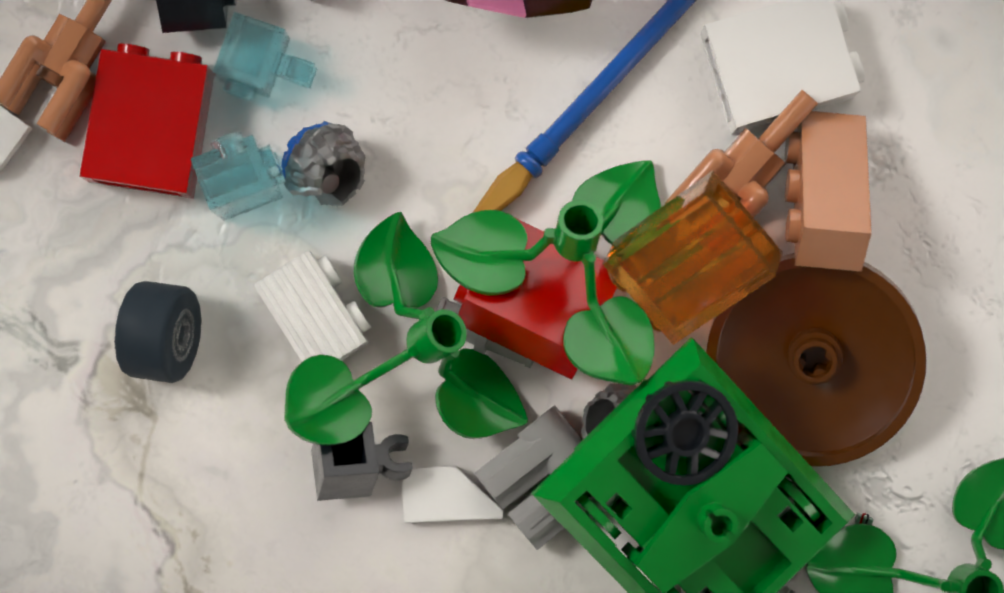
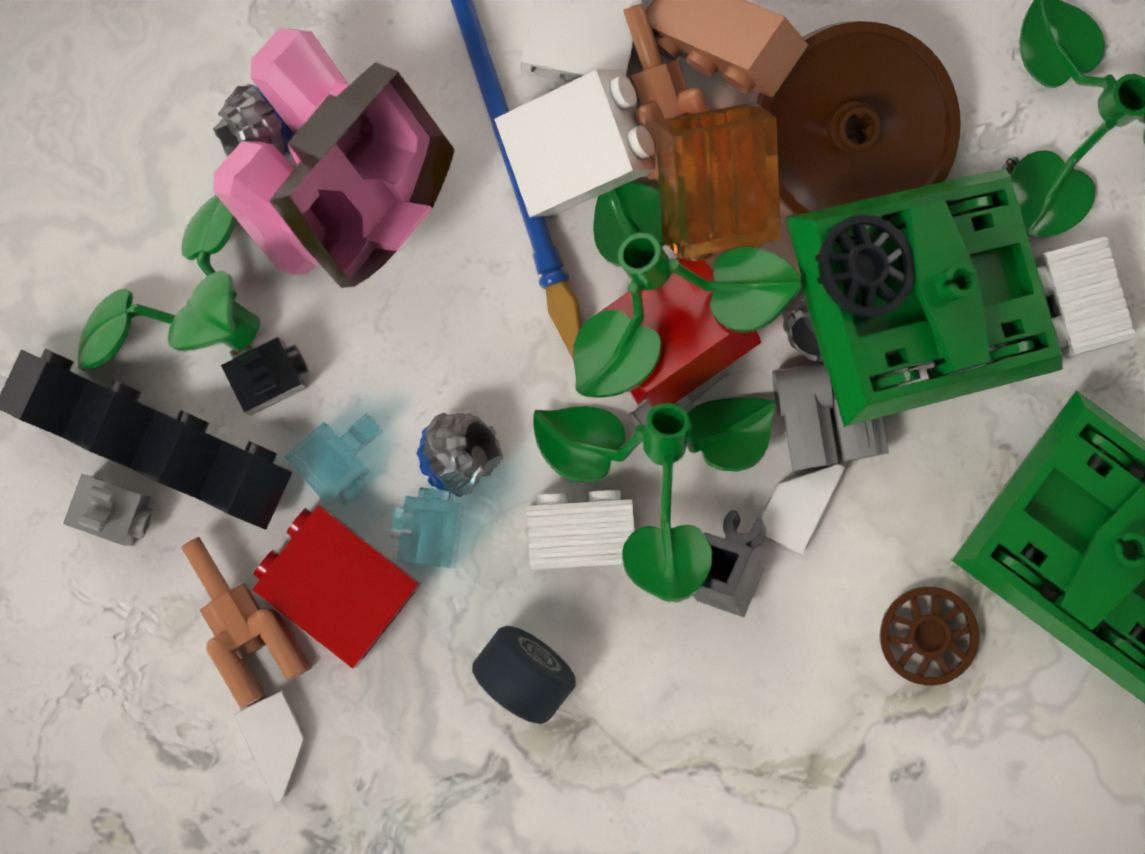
camera: 65 degrees left, 0 degrees up
(659, 114) = (576, 142): none -> white brick

